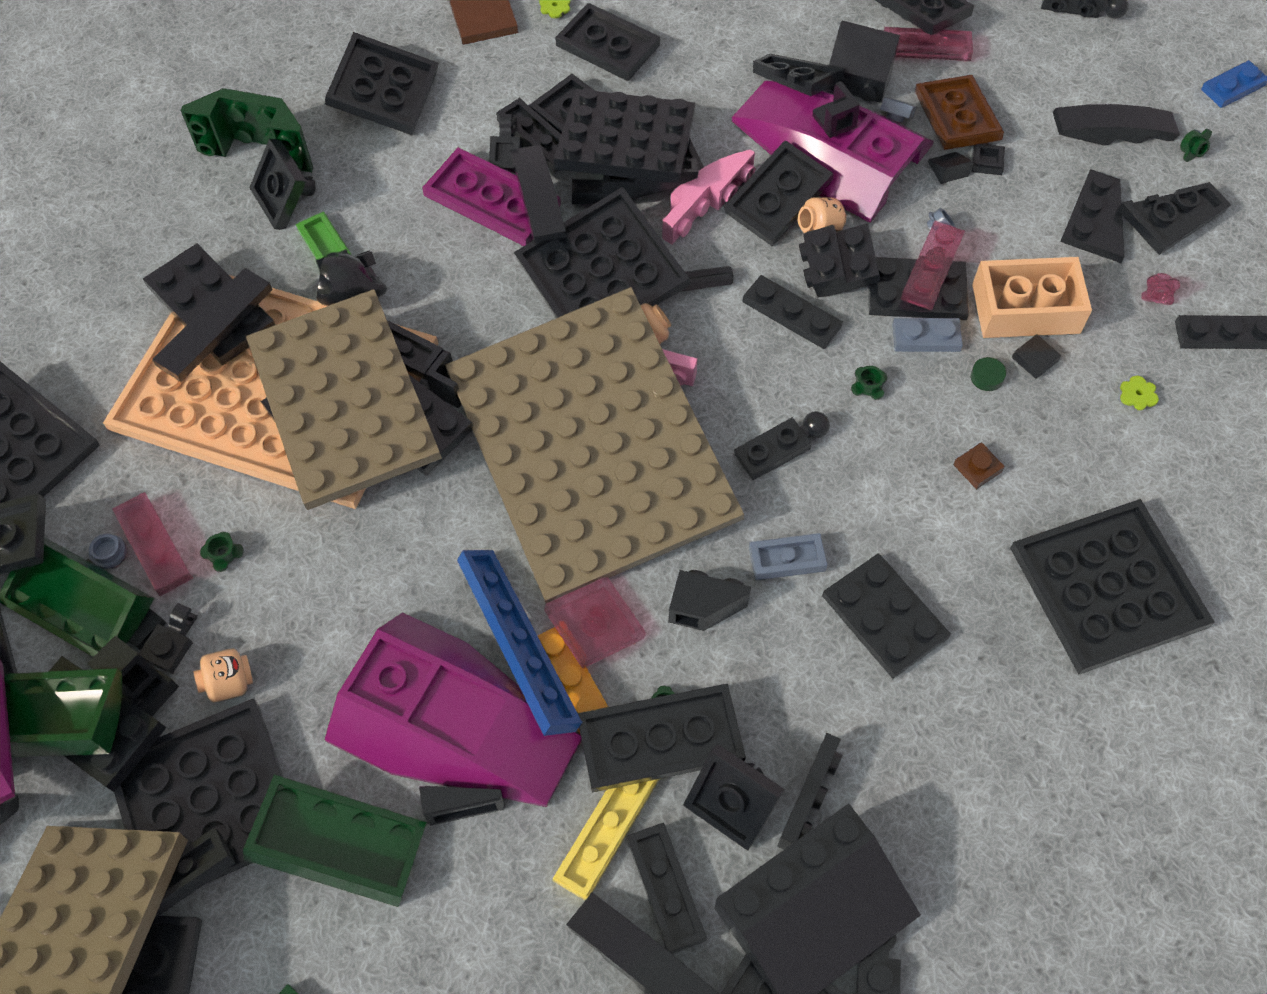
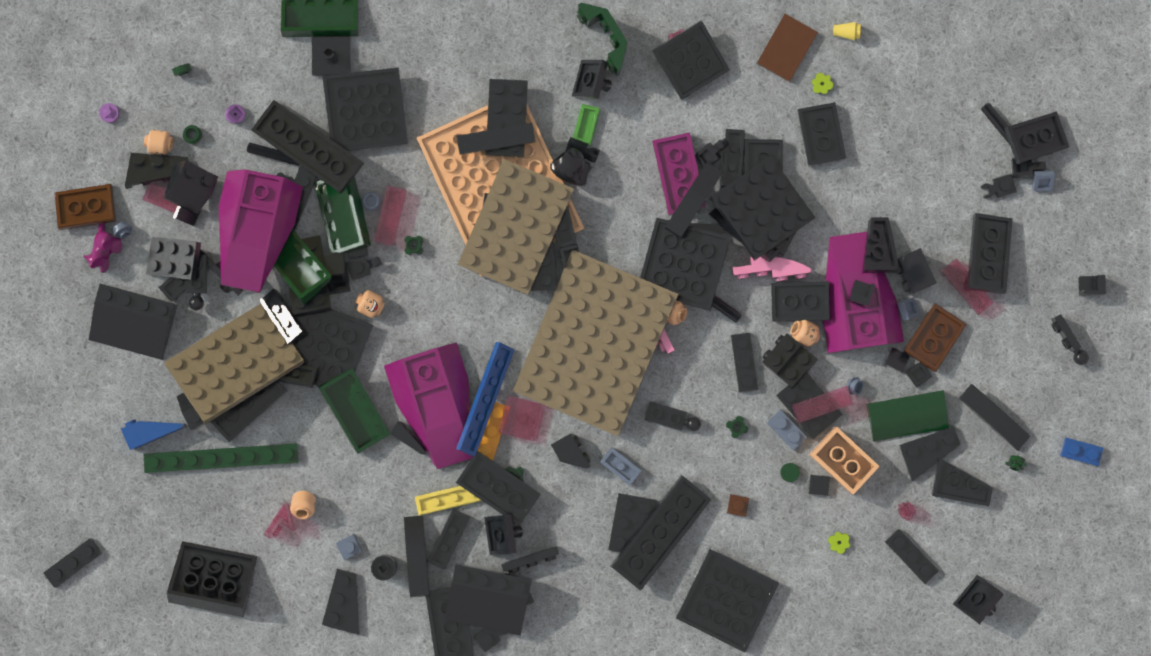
camera: 50 degrees right, 25 degrees up
(95, 811) = (282, 316): none -> plate
(935, 584) = (660, 532): none -> black plate
(1030, 202) = (908, 415): none -> dark green slope

